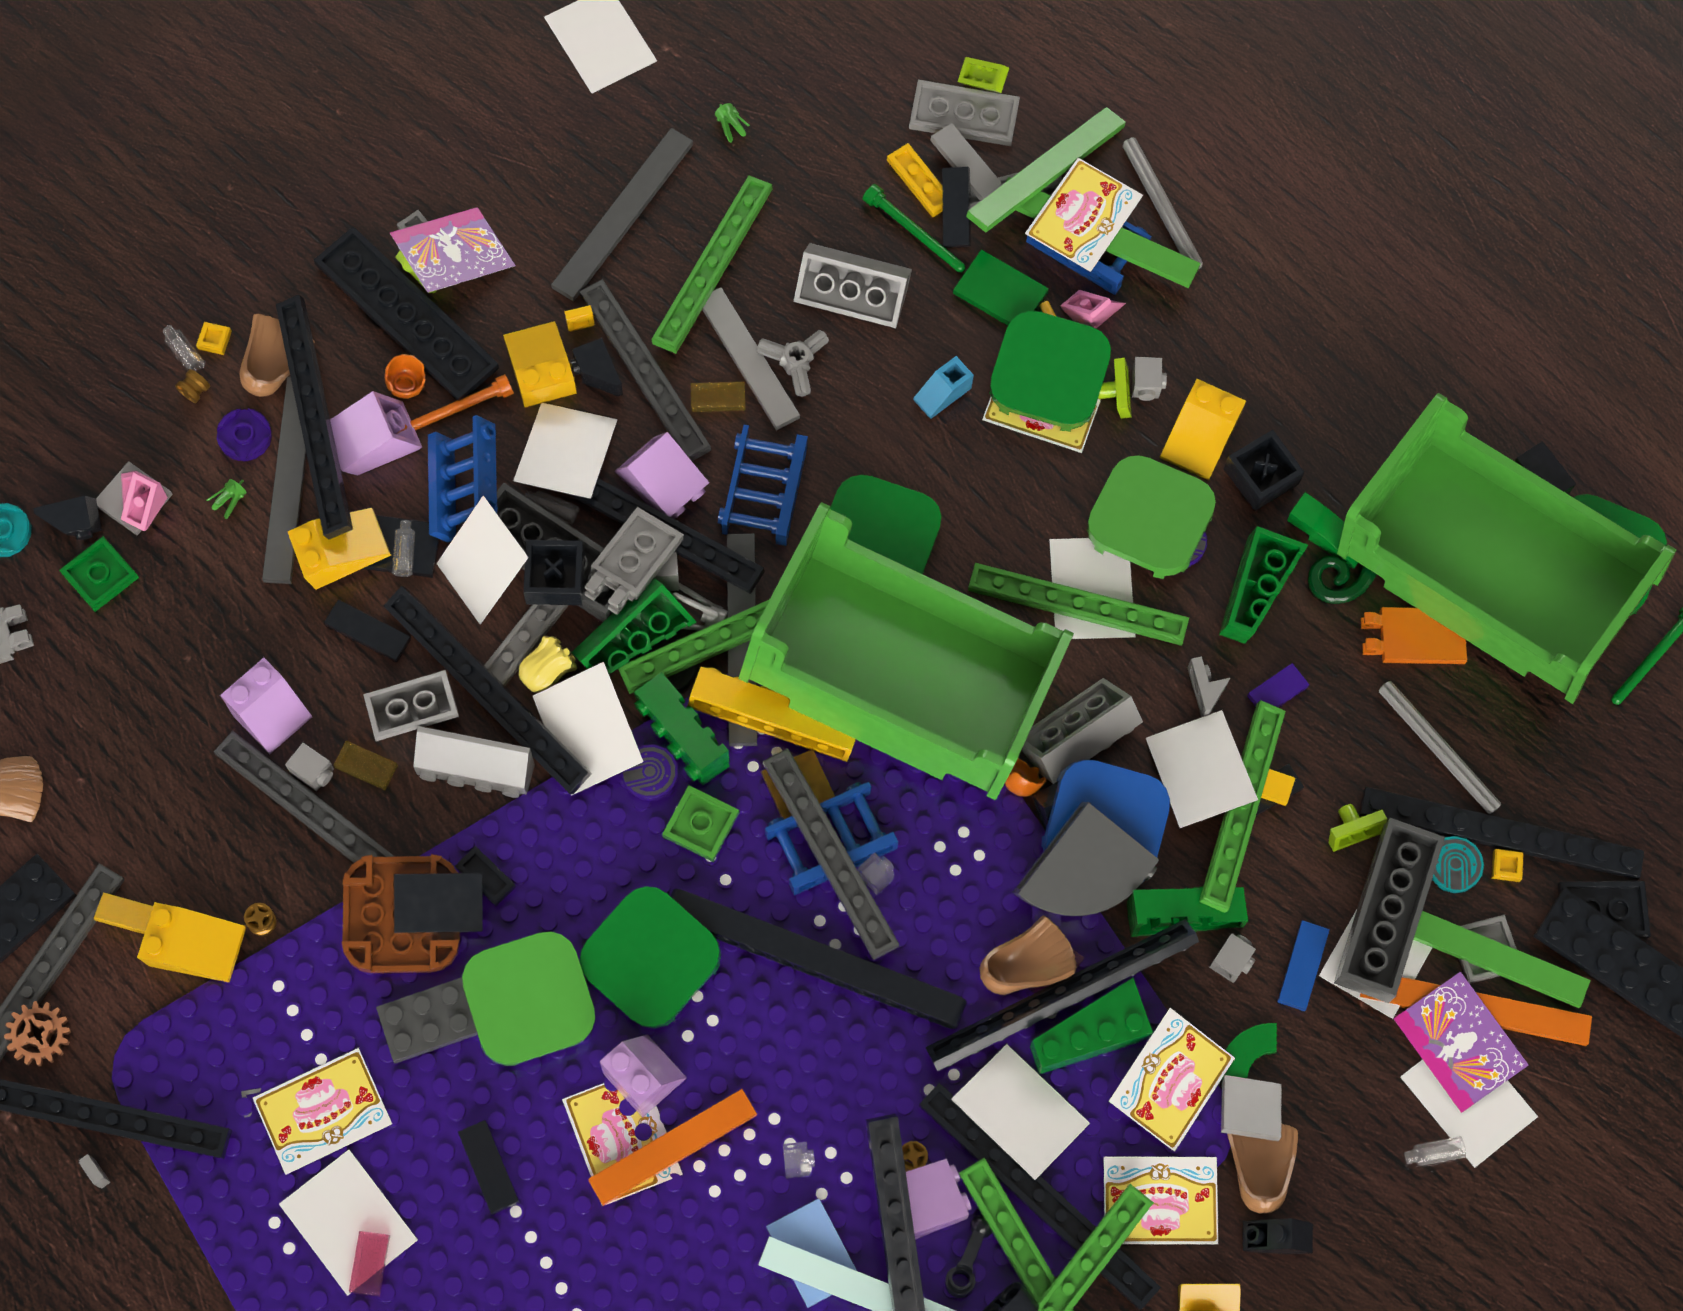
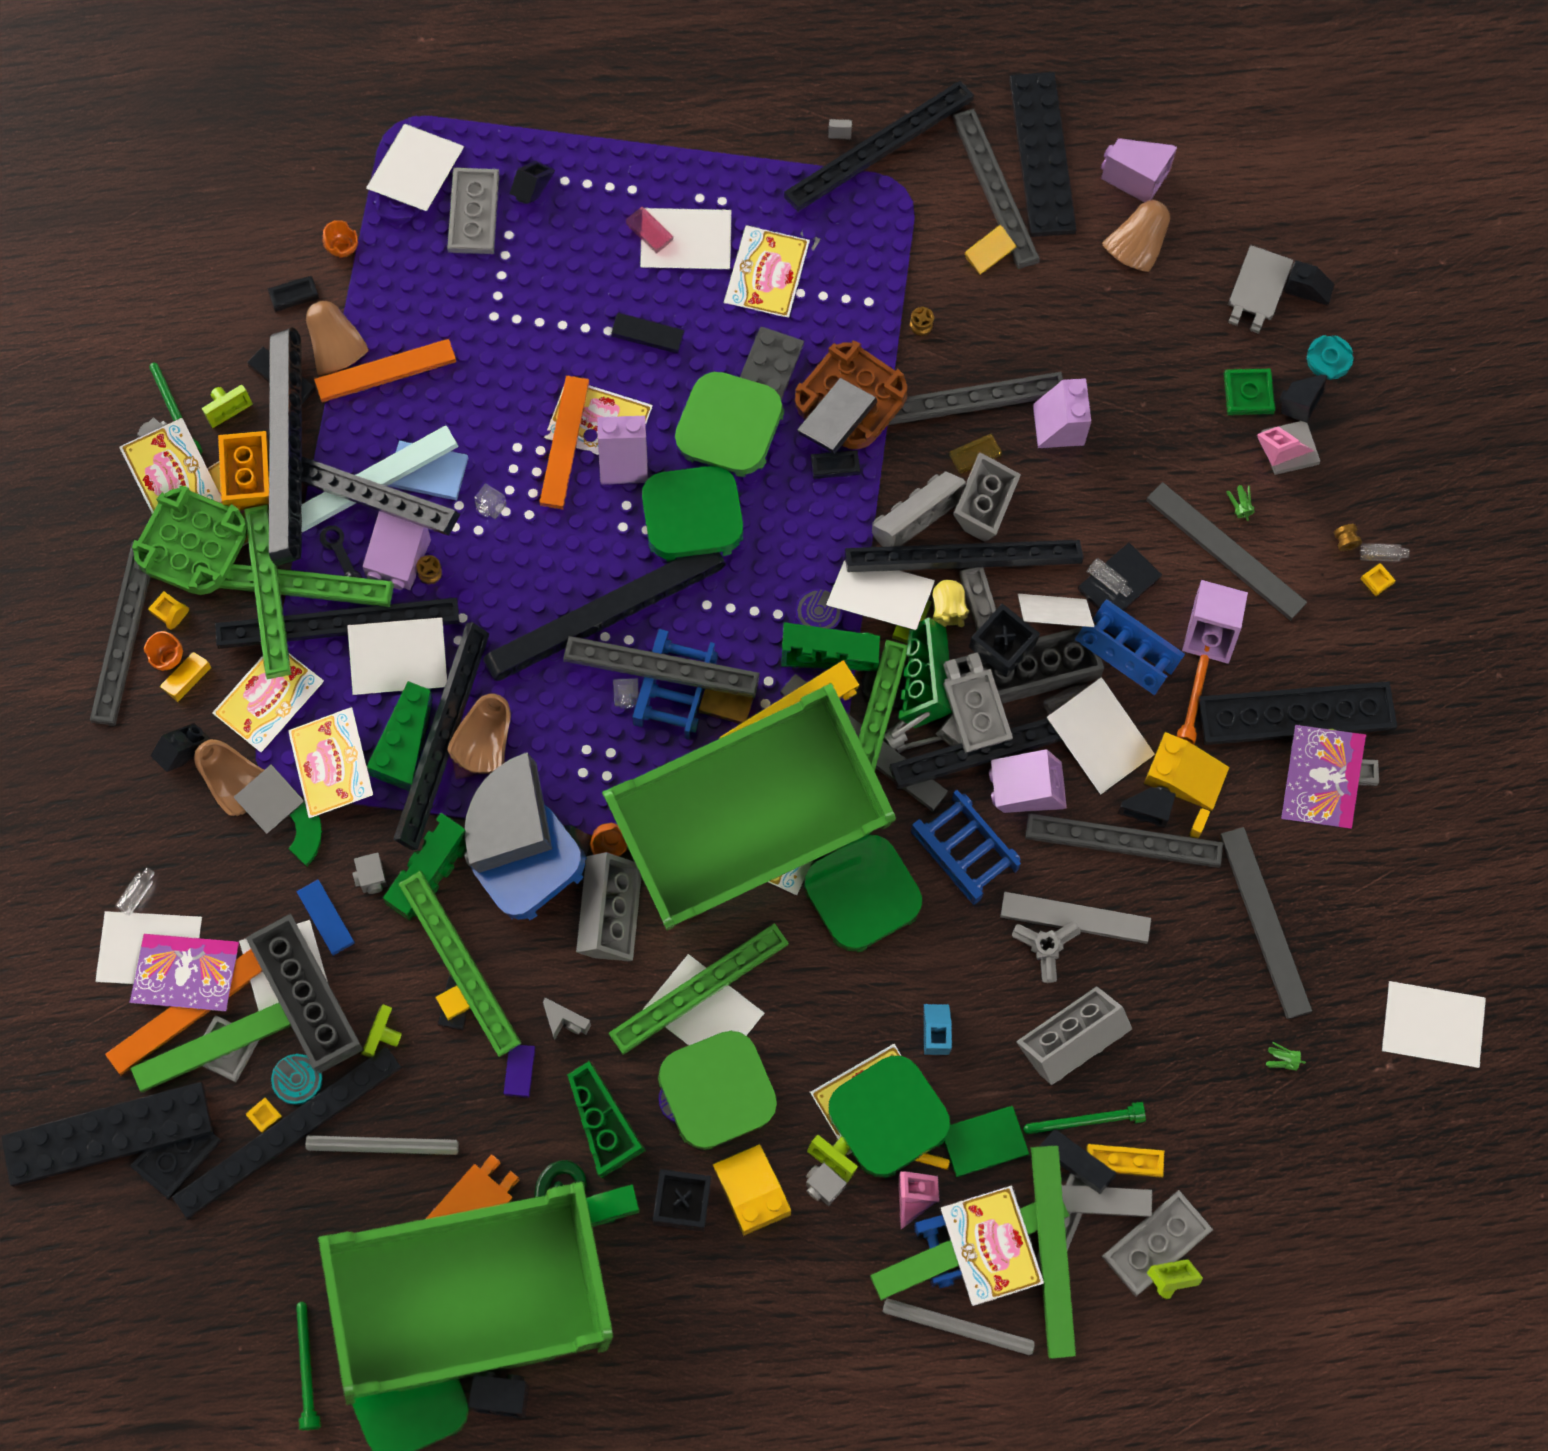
camera: 130 degrees right, 0 degrees up
(26, 1040) = (964, 156): nougat gear -> none
(191, 943) = (939, 270): yellow slope -> none
(244, 434) = (1284, 547): dark purple tile -> none
(265, 358) = (1332, 603): medium nougat hair -> none
(310, 767) = (999, 415): light grey brick -> none
(314, 417) = (1258, 588): black plate -> none
(332, 559) = (1146, 539): yellow slope -> none
(367, 631) = (1071, 520): black tile -> none
(405, 376) = (1244, 673): orange hair -> none
(700, 823) = (755, 614): bright green plate -> none
(712, 264) = (1172, 951): bright green tile -> none
(718, 396) = (1062, 874): clear yellow tile -> none
(1201, 769) = (509, 960): white sticker -> none

